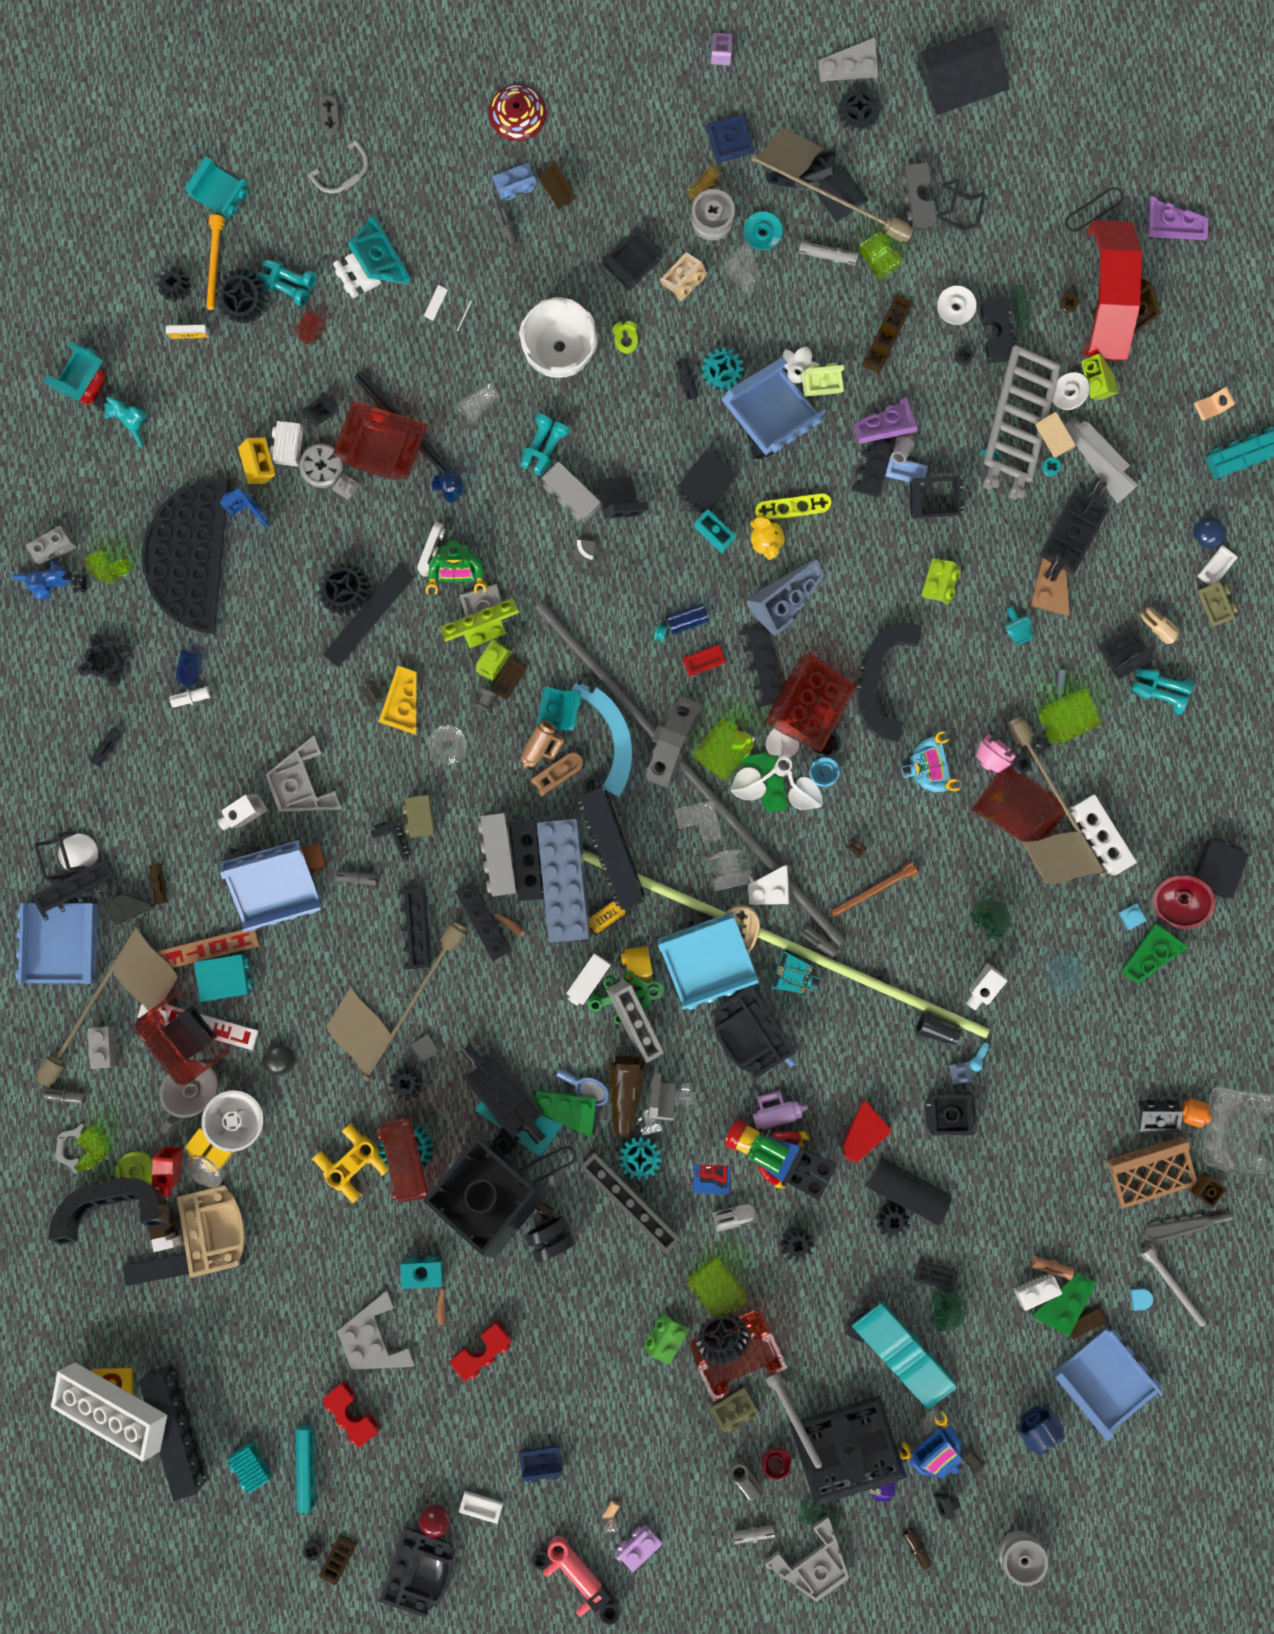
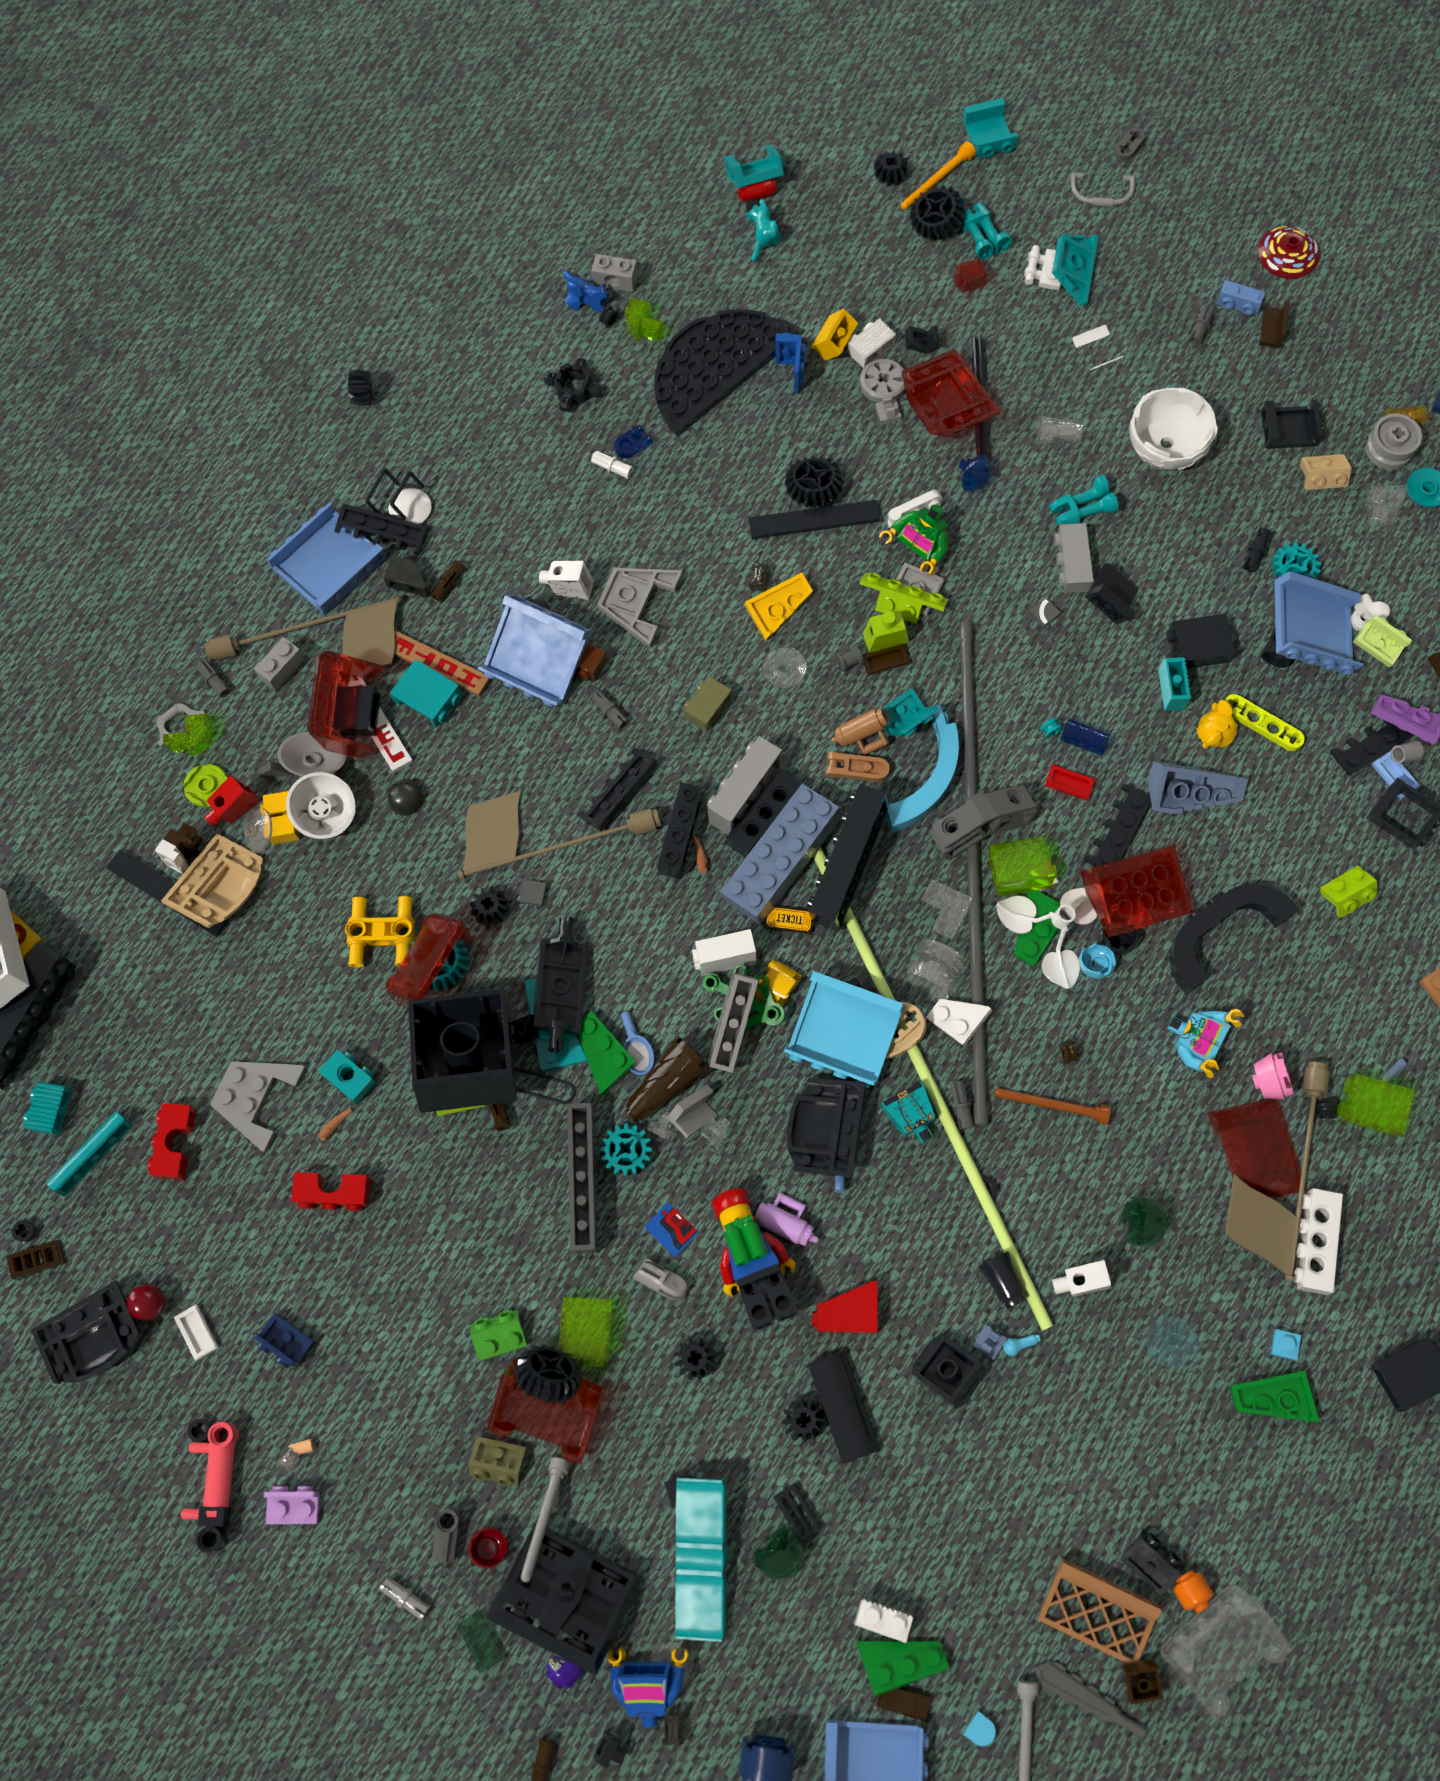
camera: 50 degrees right, 15 degrees down
(68, 1215) = (143, 768): black arch -> none
(97, 757) = (496, 450): black pin -> none
(187, 331) = (869, 207): white tile -> none
(382, 829) = (668, 689): black bracket -> none
(550, 1239) = (482, 1144): black wheel -> none
(631, 328) = (1231, 468): lime piece -> none
(820, 1570) = (433, 1695): light grey wing -> none
(1016, 767) = (1285, 1107): black bush -> none
(1018, 628) = (1390, 990): teal piece -> none
(1052, 1267) = (918, 1612): nougat pin -> none
(1184, 911) = (1335, 1375): dark red dish -> none

